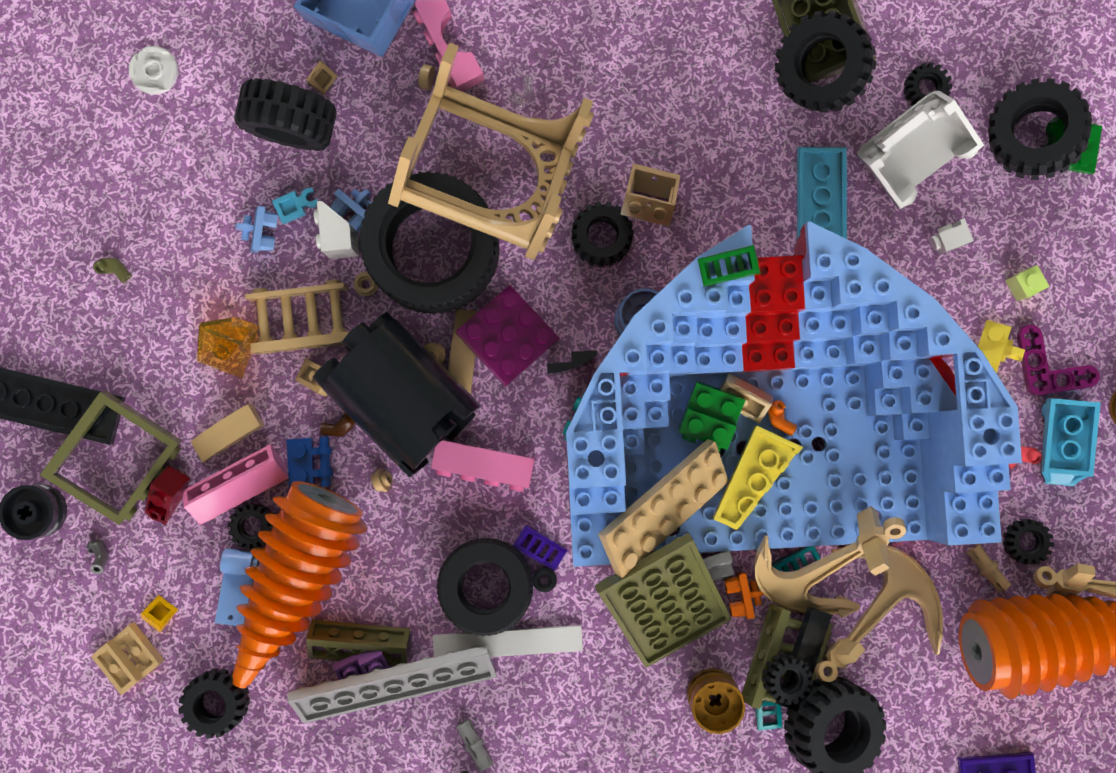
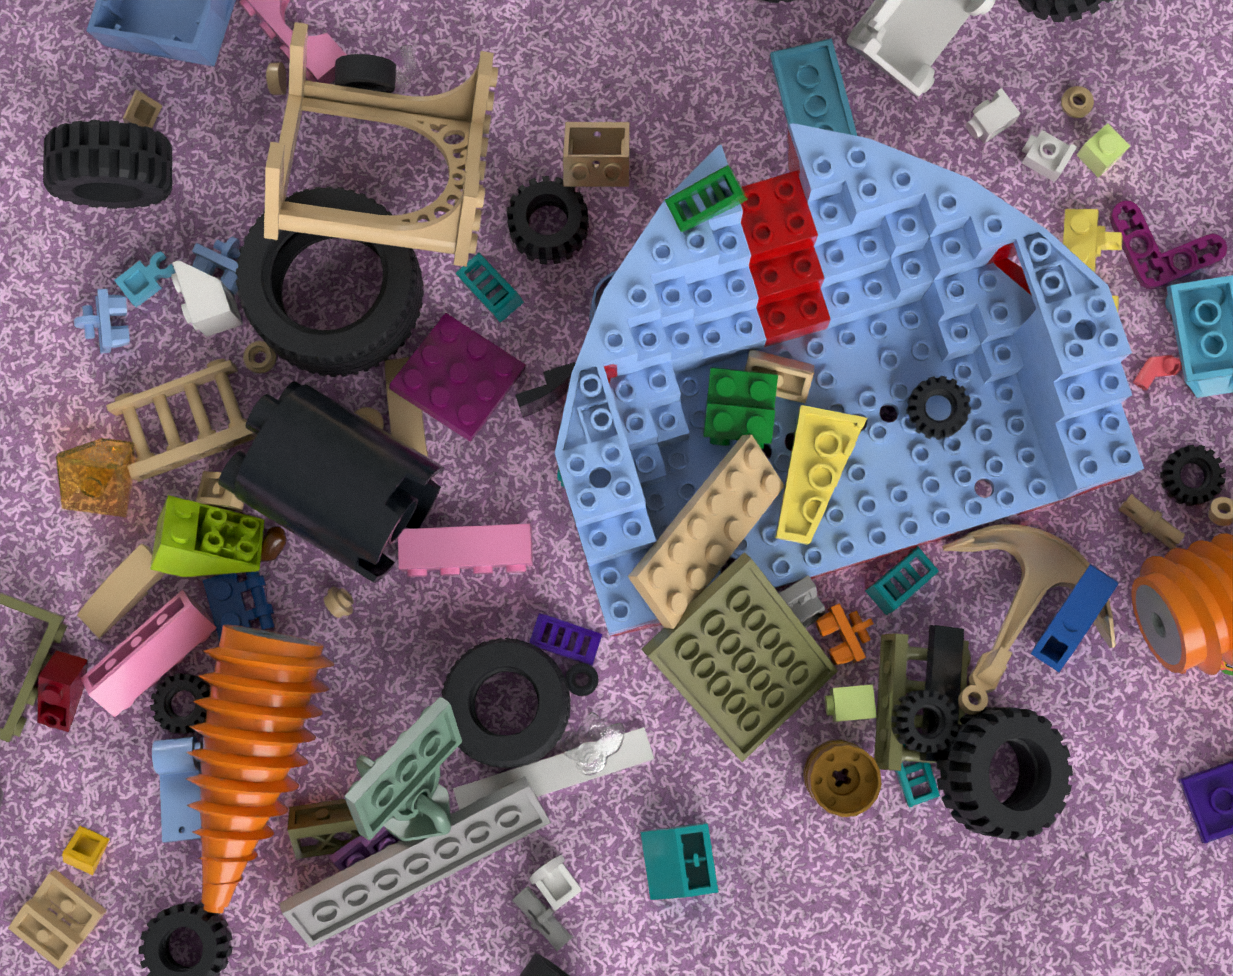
camera: 10 degrees left, 5 degrees down
(295, 412) = (205, 540): none -> lime slope
(399, 637) = (402, 785): none -> sand green plate
(490, 721) = (555, 882): none -> white tile
(493, 90) = (366, 72): none -> black tyre
(541, 626) = (592, 740): none -> clear plate
(555, 291) = (506, 299): none -> teal slope
(583, 730) = (679, 861): none -> teal slope
(735, 646) = (851, 703): none -> yellowish green brick
(778, 420) = (827, 391): orange arm -> none
(792, 588) = (901, 605): tan piece -> none
(873, 452) = (947, 389): none -> black tyre
(914, 628) = (1074, 618): none -> blue slope
(984, 285) = (1047, 165): none -> white brick
(1010, 243) = (1071, 108): none -> tan plate

